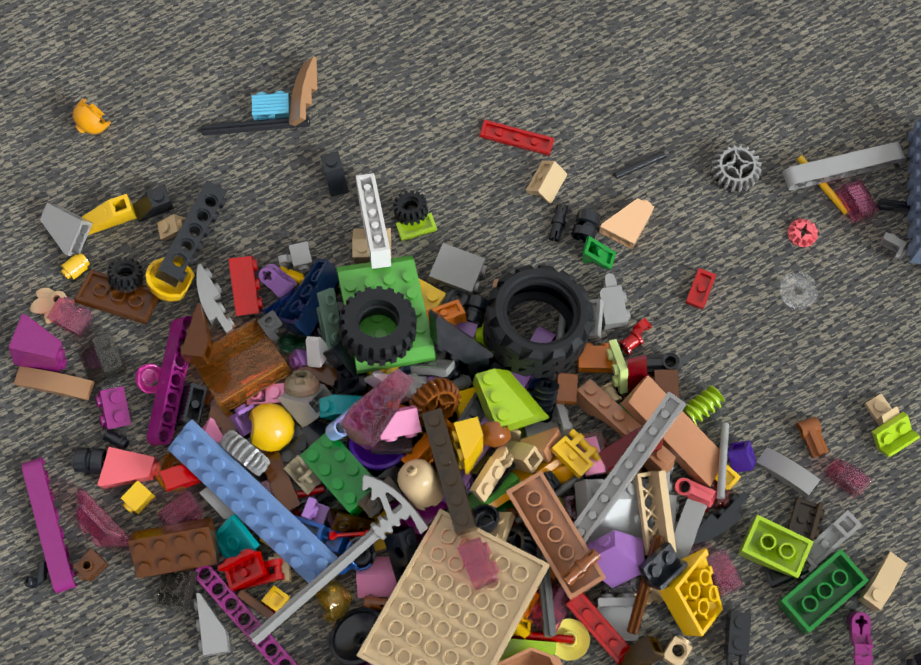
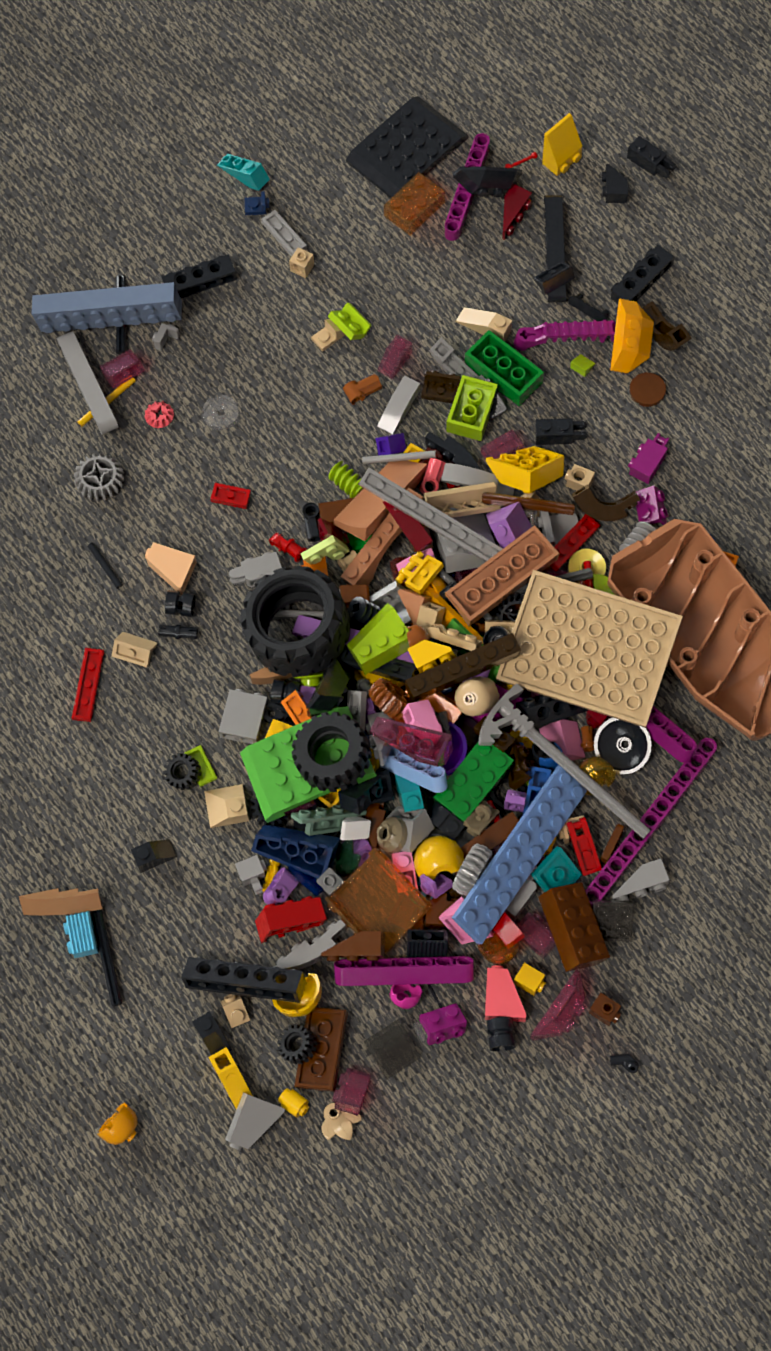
camera: 95 degrees left, 5 degrees down
(36, 347) = (392, 1112): magenta slope -> none
(48, 527) = (571, 1061): magenta beam -> none
(54, 383) = (426, 1093): medium nougat slope -> none
(116, 440) = (474, 1015): black pin -> none
(243, 568) = (583, 854): red bracket -> none
(275, 599) = (602, 829): yellow plate -> none
(333, 535) = (536, 773): red hinge -> none
(373, 221) = (208, 794): white brick -> none
(478, 563) = (544, 628): clear pink brick -> none
(581, 567) = (530, 544): dark orange pin -> none
(598, 253) = (208, 590): green slope -> none
(662, 567) = (513, 487): black bracket -> none

